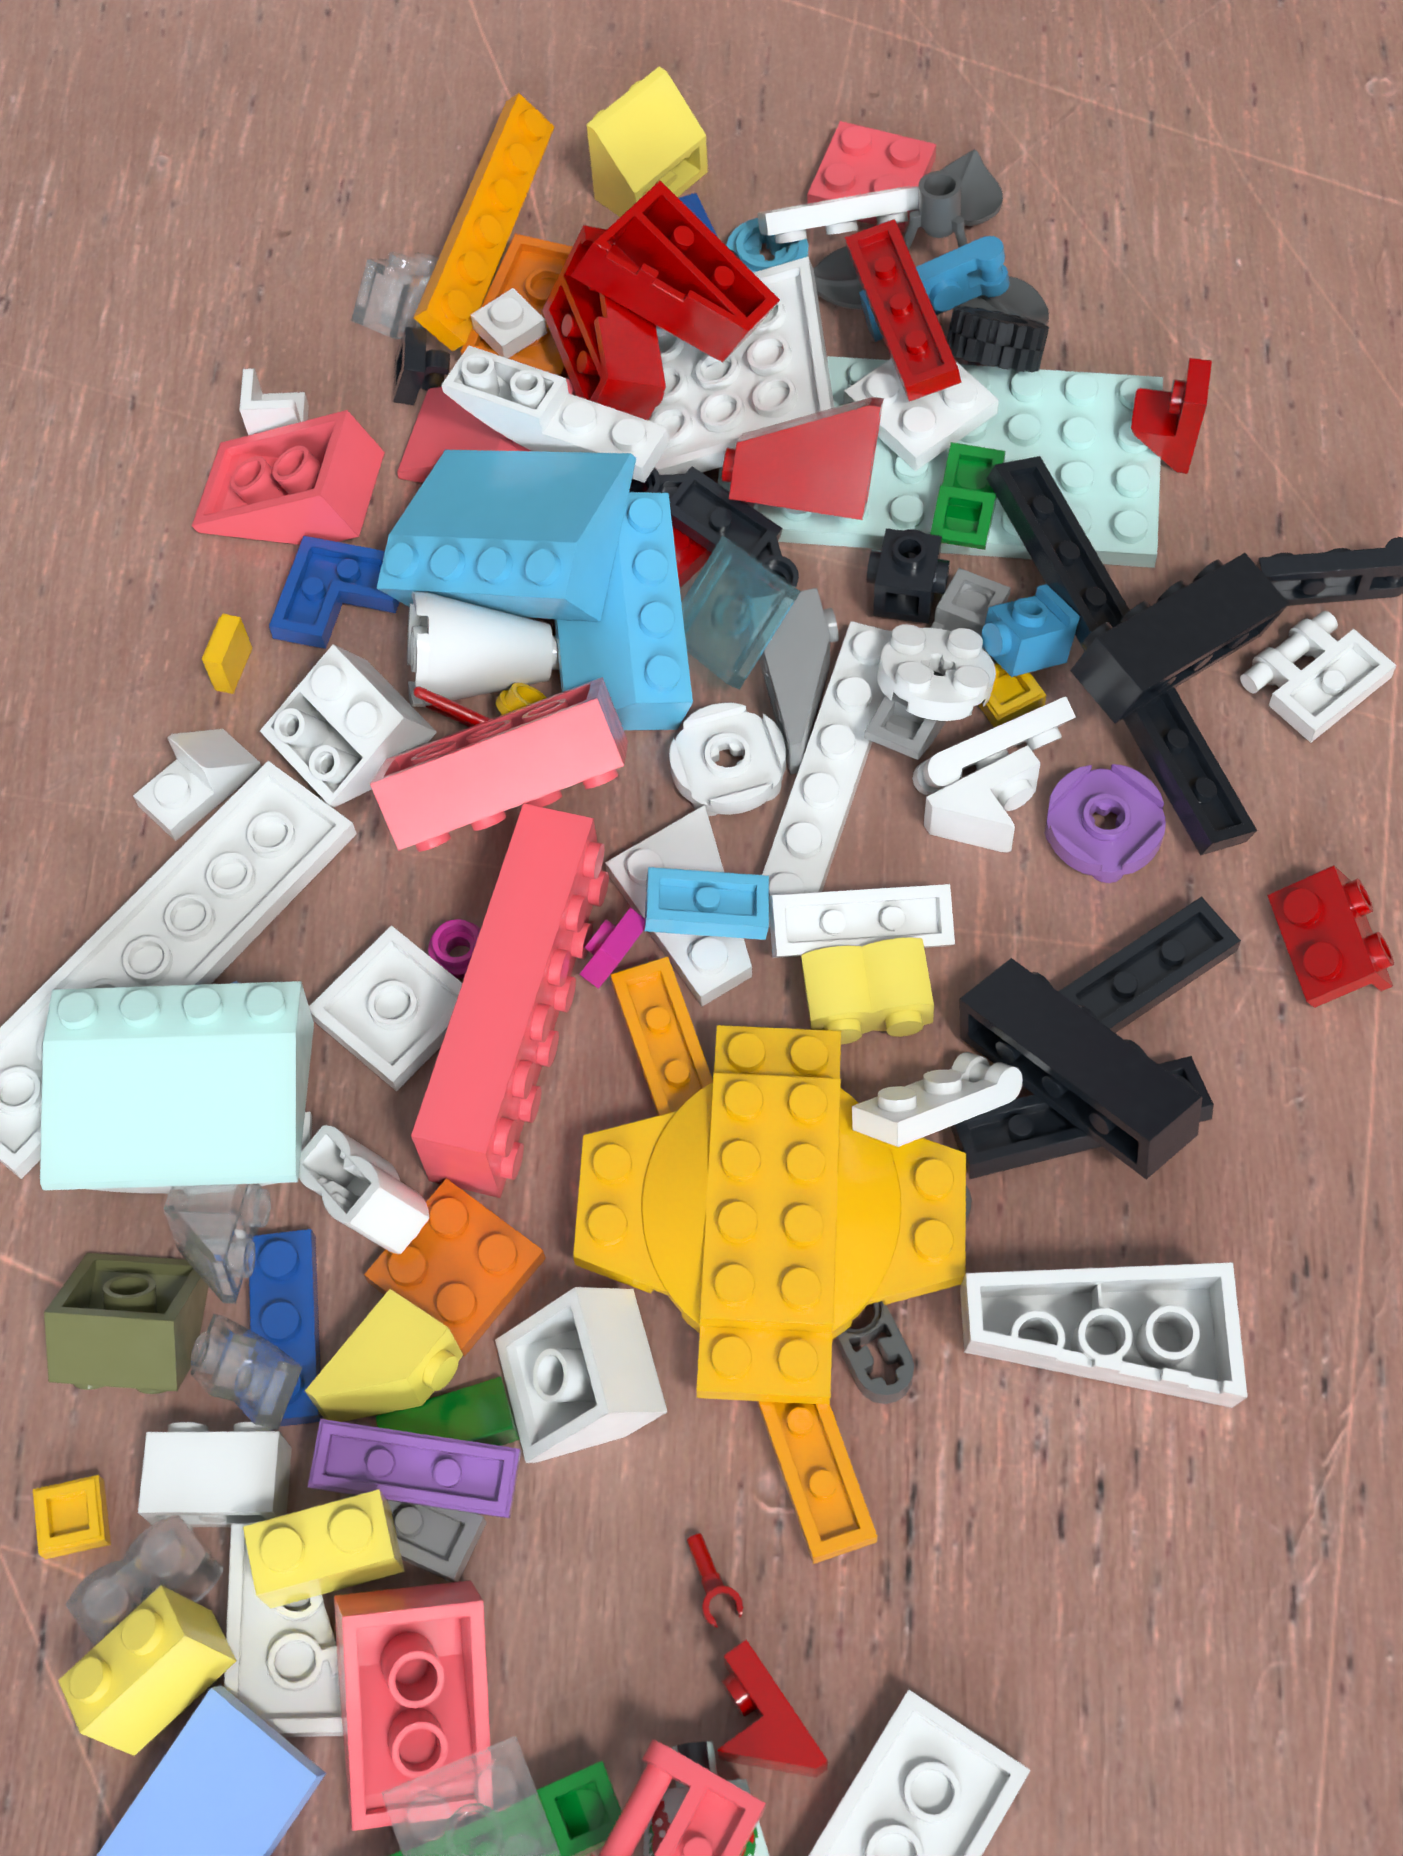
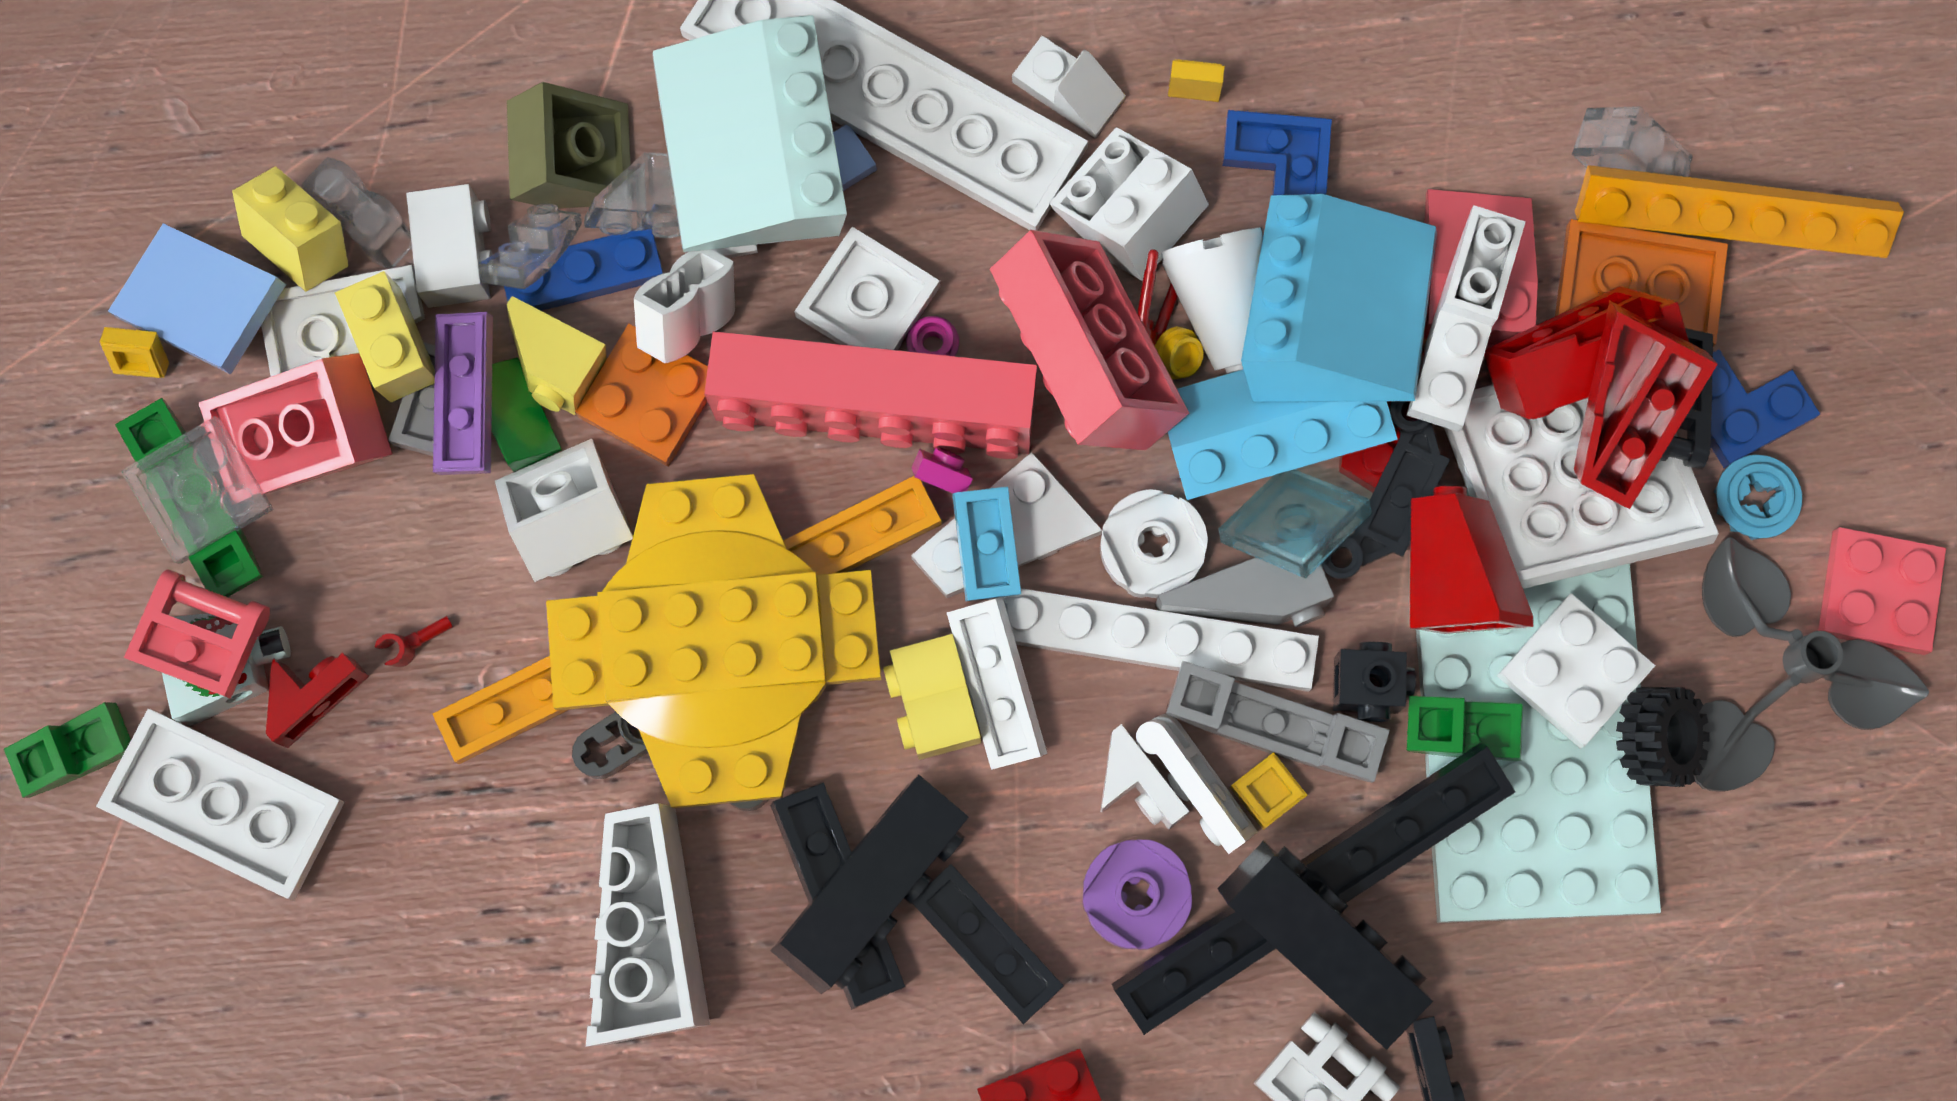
camera: 80 degrees right, 15 degrees up
(71, 1517) = (415, 146): yellow tile -> none
(270, 410) = (1471, 60): white panel -> none
(292, 482) = (1390, 95): coral slope -> none
(417, 367) = (1547, 182): black tile -> none
(509, 323) = (1605, 257): white plate -> none
(645, 140) = (1852, 353): light yellow slope -> none
(838, 214) = (1800, 558): white plate -> none
(902, 310) = (1664, 634): red plate -> none
(916, 653) = (1289, 714): white plate -> none
(938, 1100) = (822, 766): white plate -> none
(957, 278) = (1725, 670): dark azure plate -> none
(1030, 632) = (1302, 802): dark azure brick -> none
(1173, 419) = (1594, 918): red slope -> none

